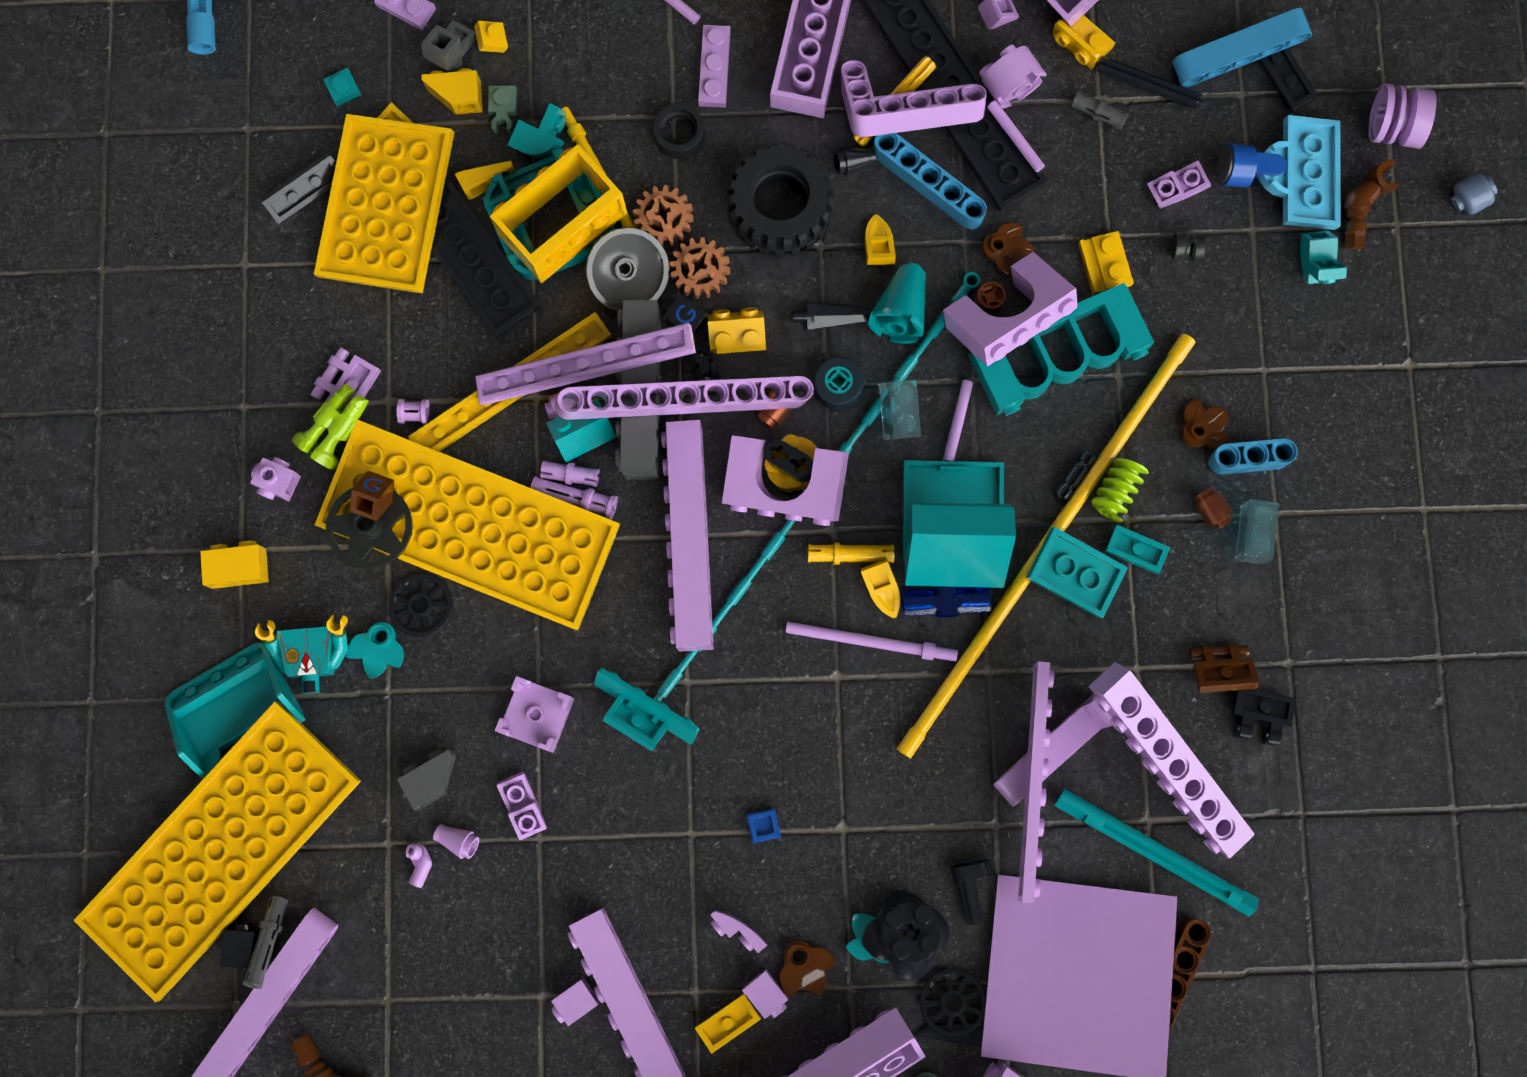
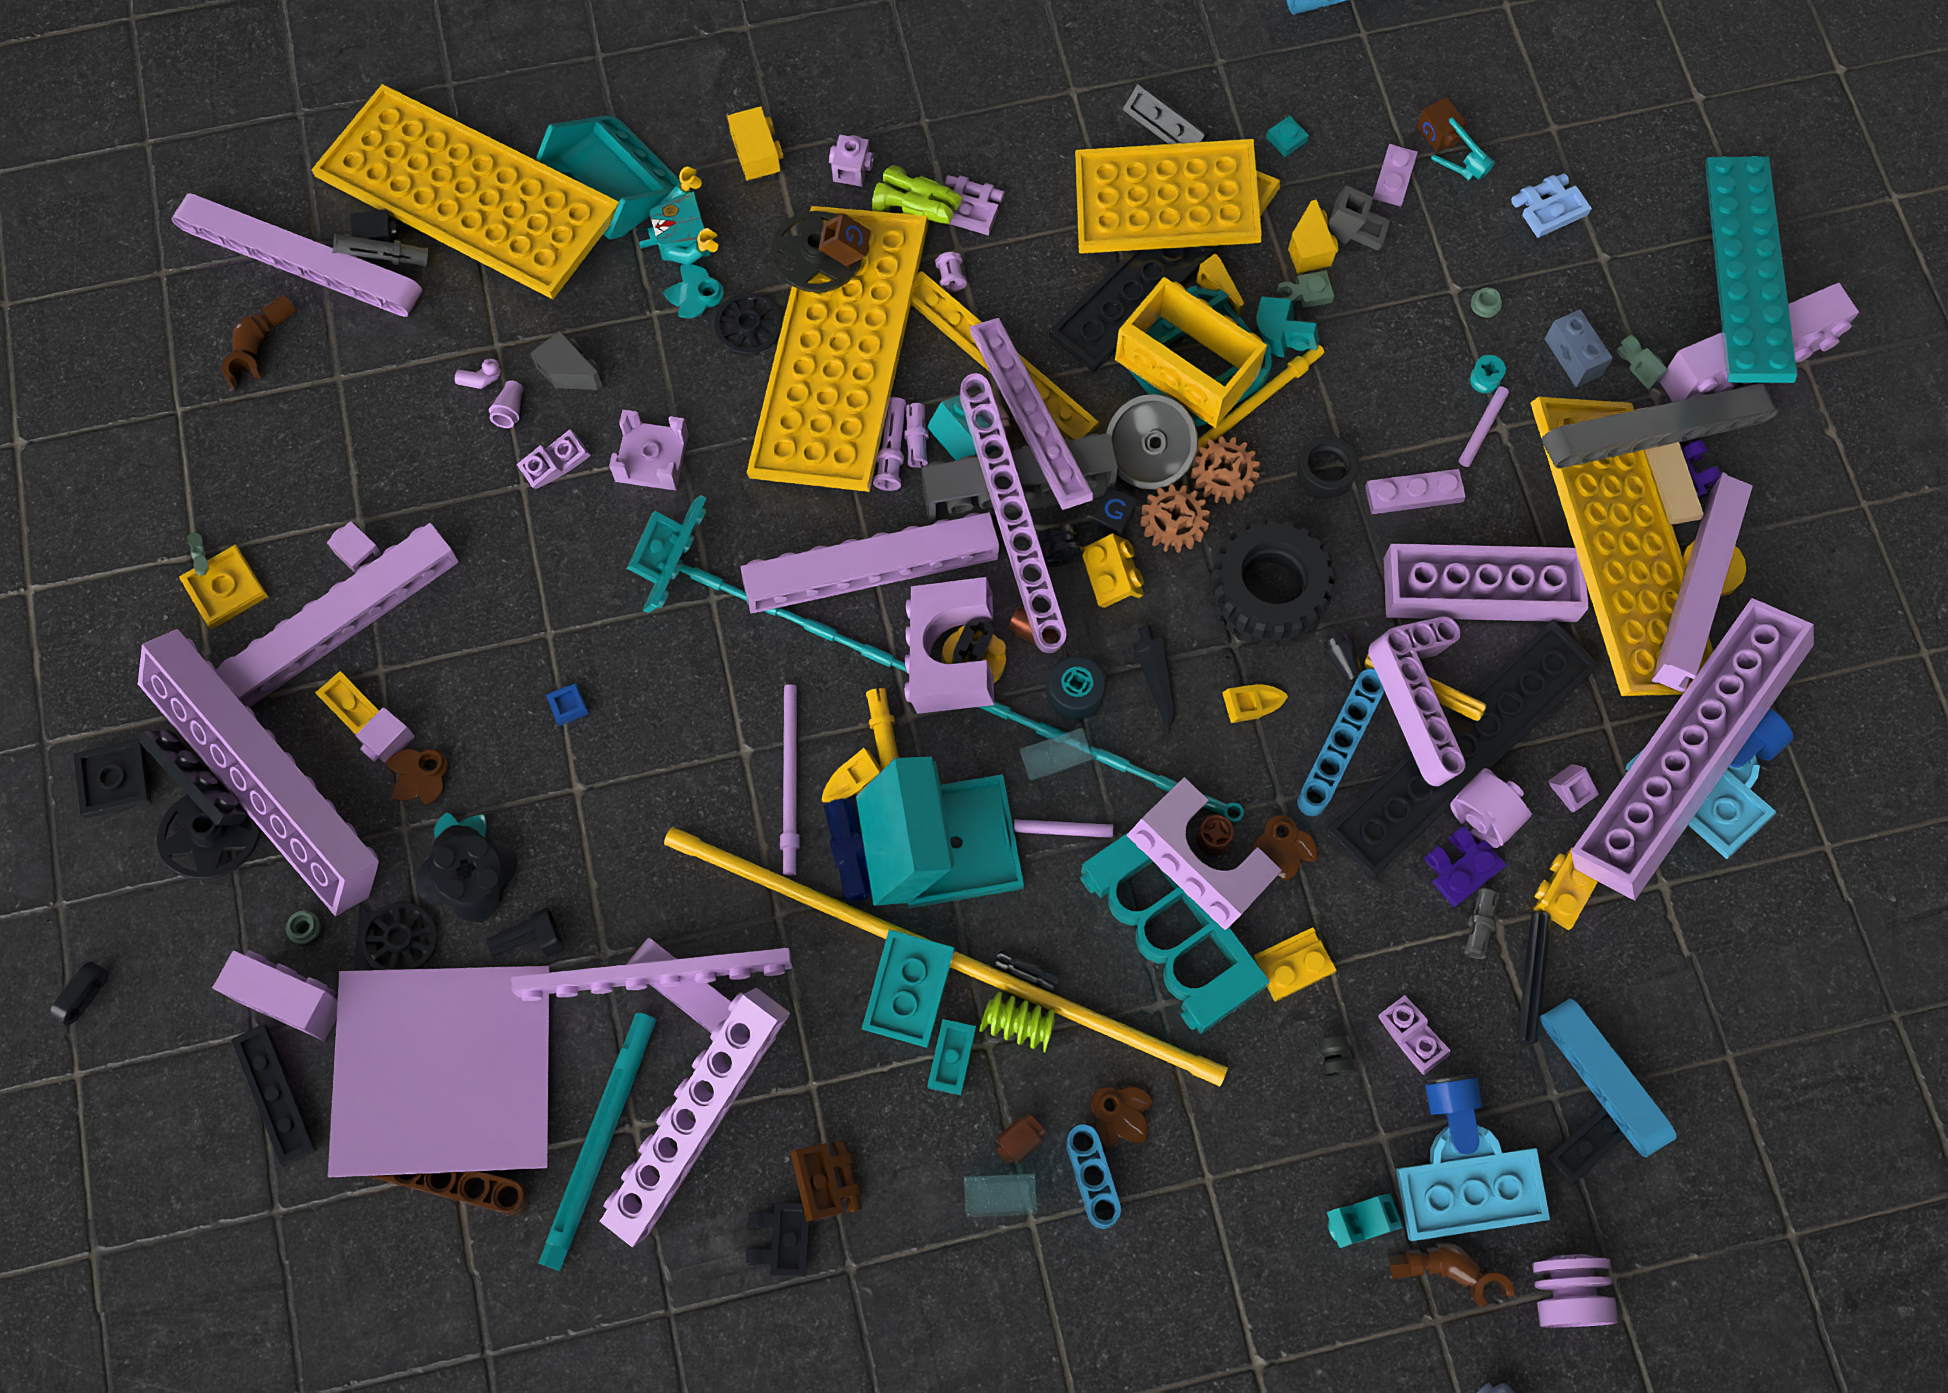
camera: 75 degrees right, 10 degrees down
(491, 36) = (1382, 261): yellow plate -> none
(729, 924) = (455, 685): lavender slope -> none
(901, 306) = (1183, 736): teal cone -> none
(1016, 136) = (1418, 827): lavender bar -> none
(1055, 109) = (1469, 872): none -> dark purple plate

